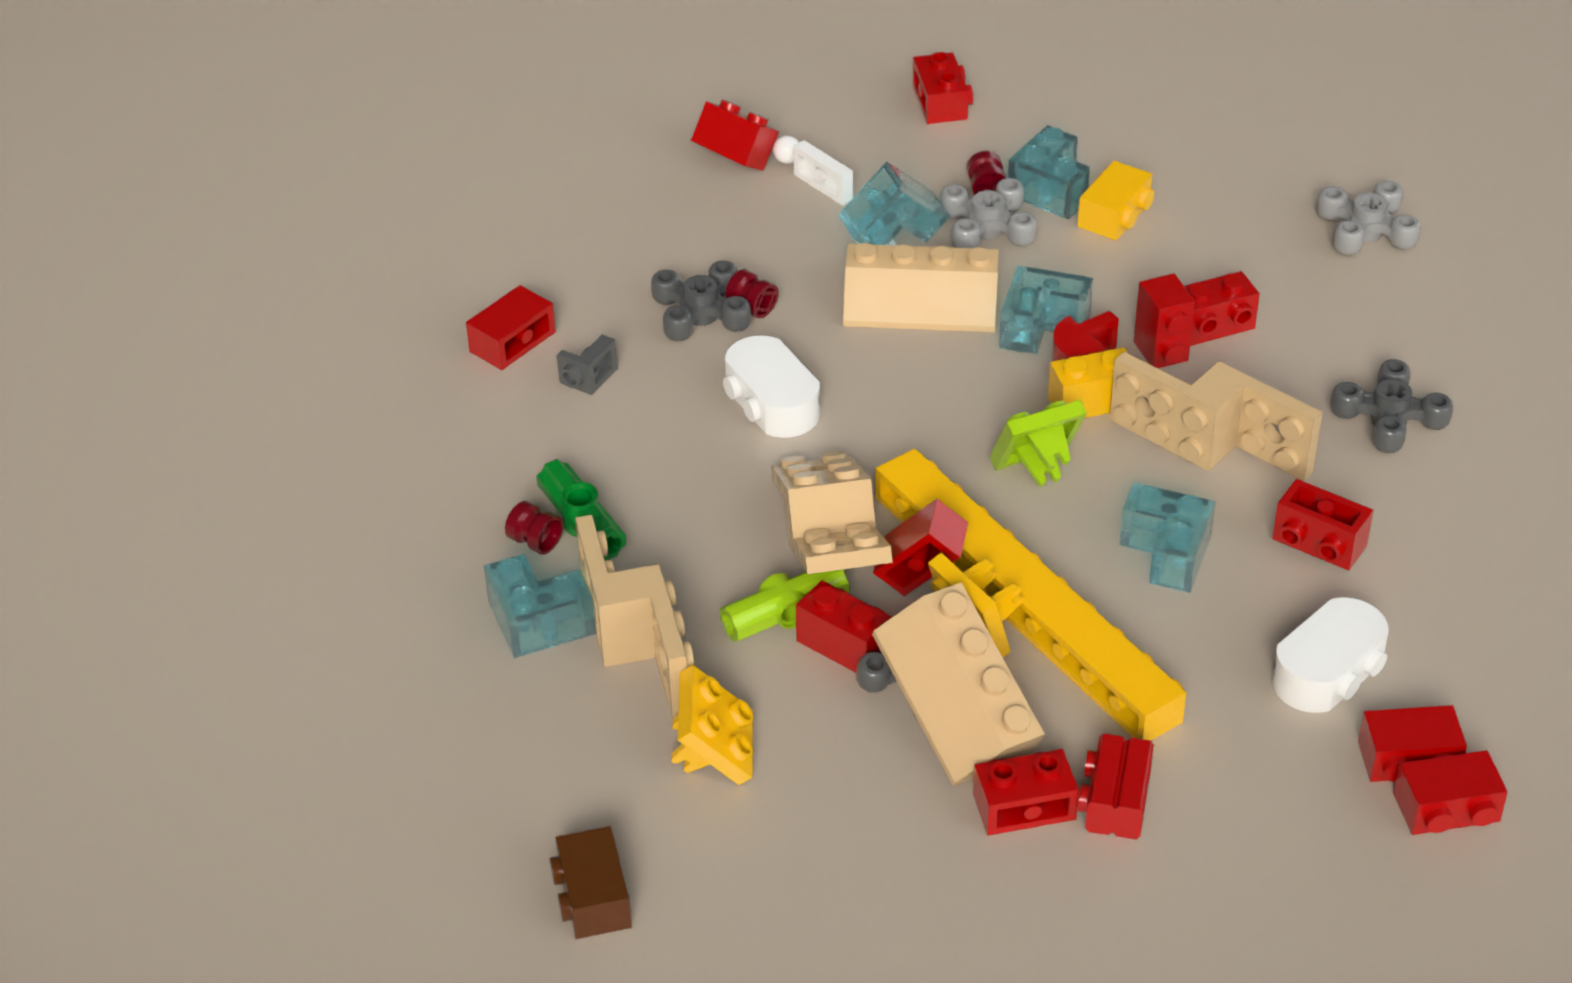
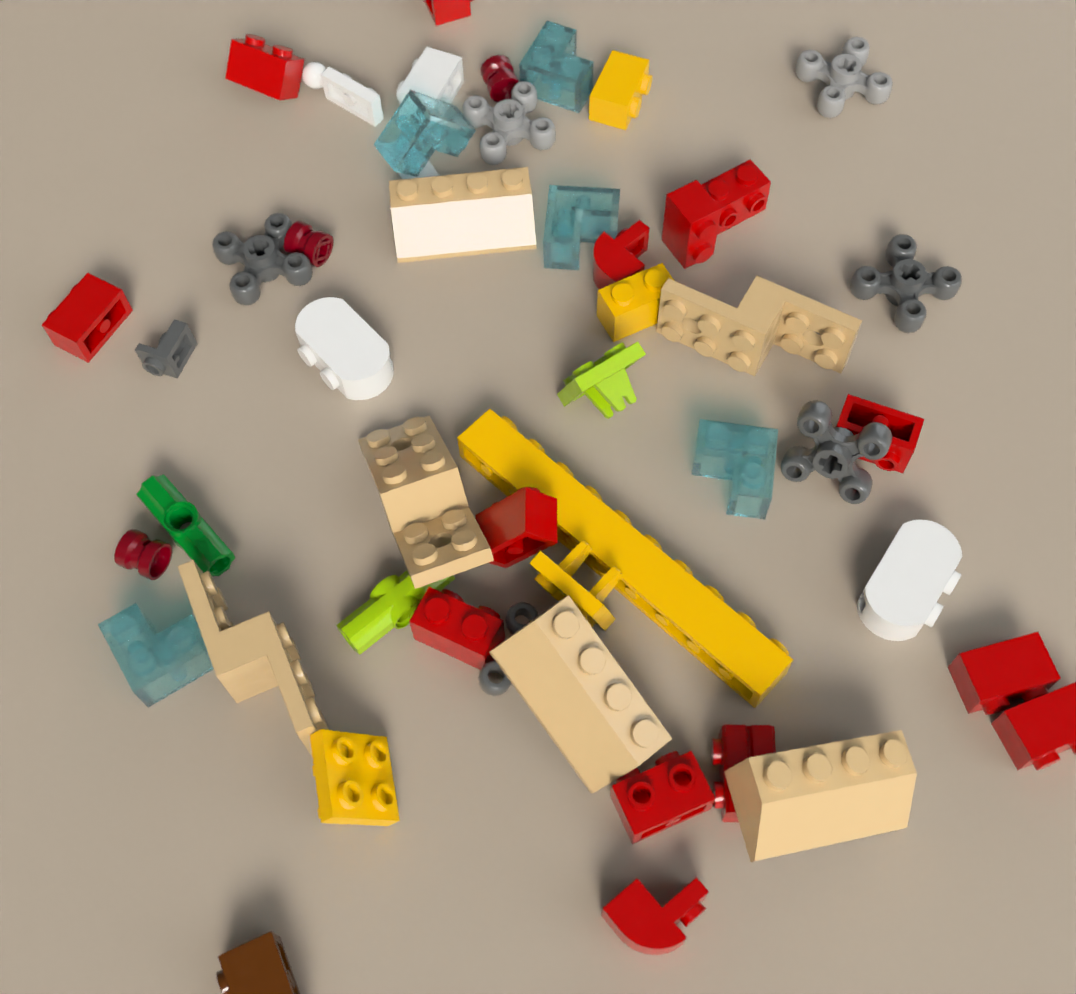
camera: 10 degrees left, 20 degrees up
(920, 160) = (434, 75): none -> white brick
(996, 891) = (647, 925): none -> red brick
(1191, 795) = (823, 794): none -> tan slope
(1272, 528) = (836, 452): none -> dark grey gear

